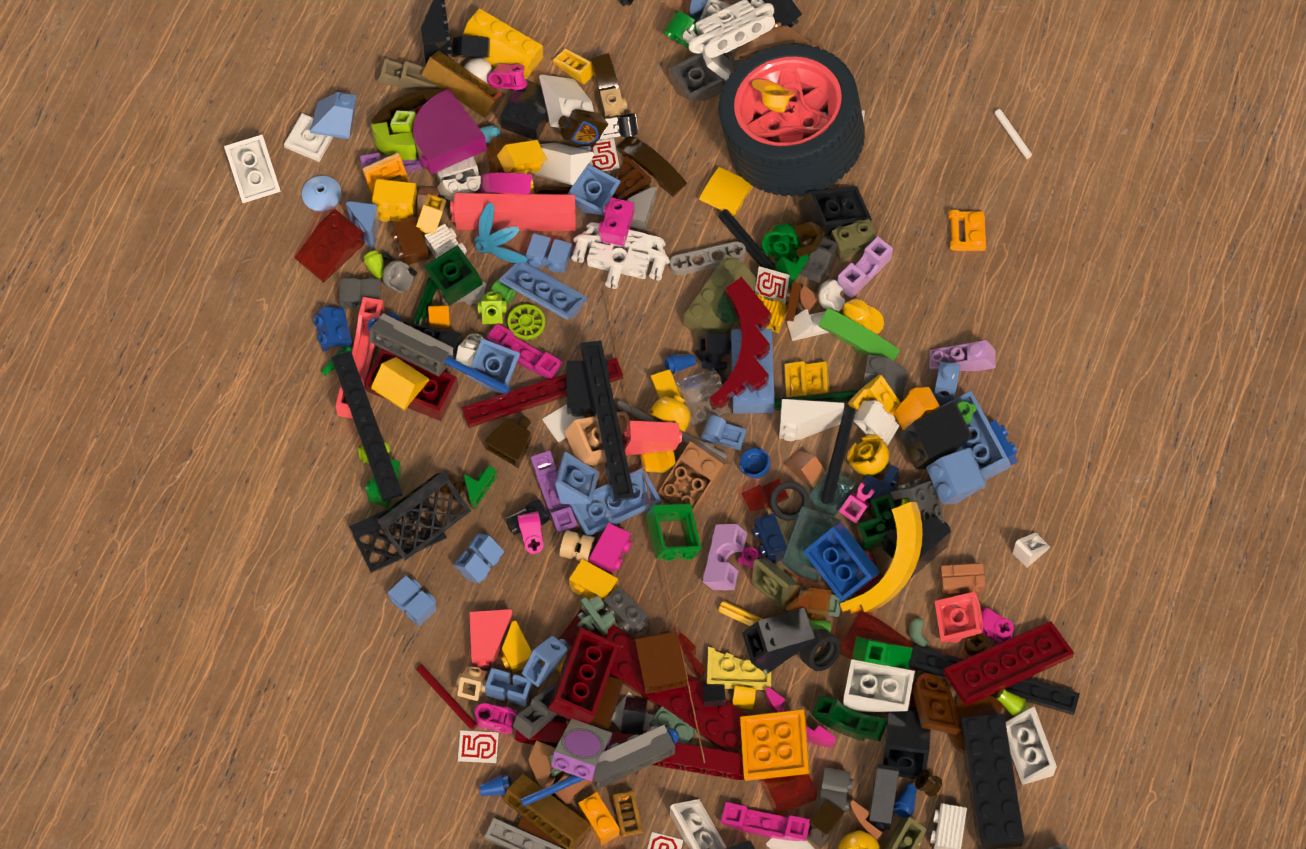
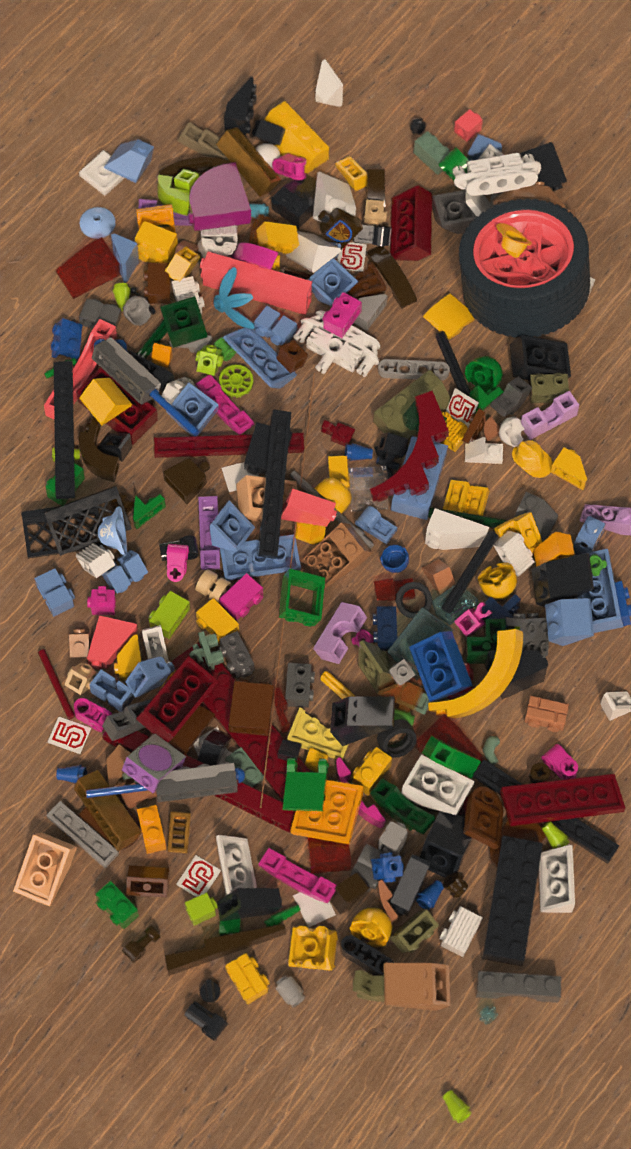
camera: 15 degrees right, 0 degrees up
(252, 168) = (44, 184): white slope -> none
(405, 448) = (98, 463): none -> dark brown arch
(423, 426) = (116, 445): none -> black slope
(445, 554) = (96, 559): none -> white brick
(453, 519) = (113, 531): none -> light blue hat
(456, 647) = (79, 642): none -> bracket
(466, 596) = (102, 601): none -> dark pink brick
(536, 625) = (154, 643): none -> white slope
(540, 589) = (169, 613): none -> lime brick
(577, 279) = (291, 356): none -> reddish brown brick
(650, 21) = (430, 151): none -> sand green brick
(655, 104) = (411, 224): none -> dark red slope
(655, 347) = (340, 434): none -> dark red plate
(699, 623) = (298, 685): none -> dark grey brick
(745, 730) = (305, 789): none -> green flag
(804, 579) = (401, 672): none -> light grey bracket
(805, 690) = (372, 770): none -> yellow brick
(810, 238) = (507, 374): dark brown slope -> none
(851, 755) = (393, 838): none -> light grey brick
(855, 785) = (387, 867): none -> blue brick
(857, 335) = (523, 473): bright green slope -> none
(903, 317) = (570, 468): none -> yellow slope
(959, 617) = (531, 746): coral slope -> none

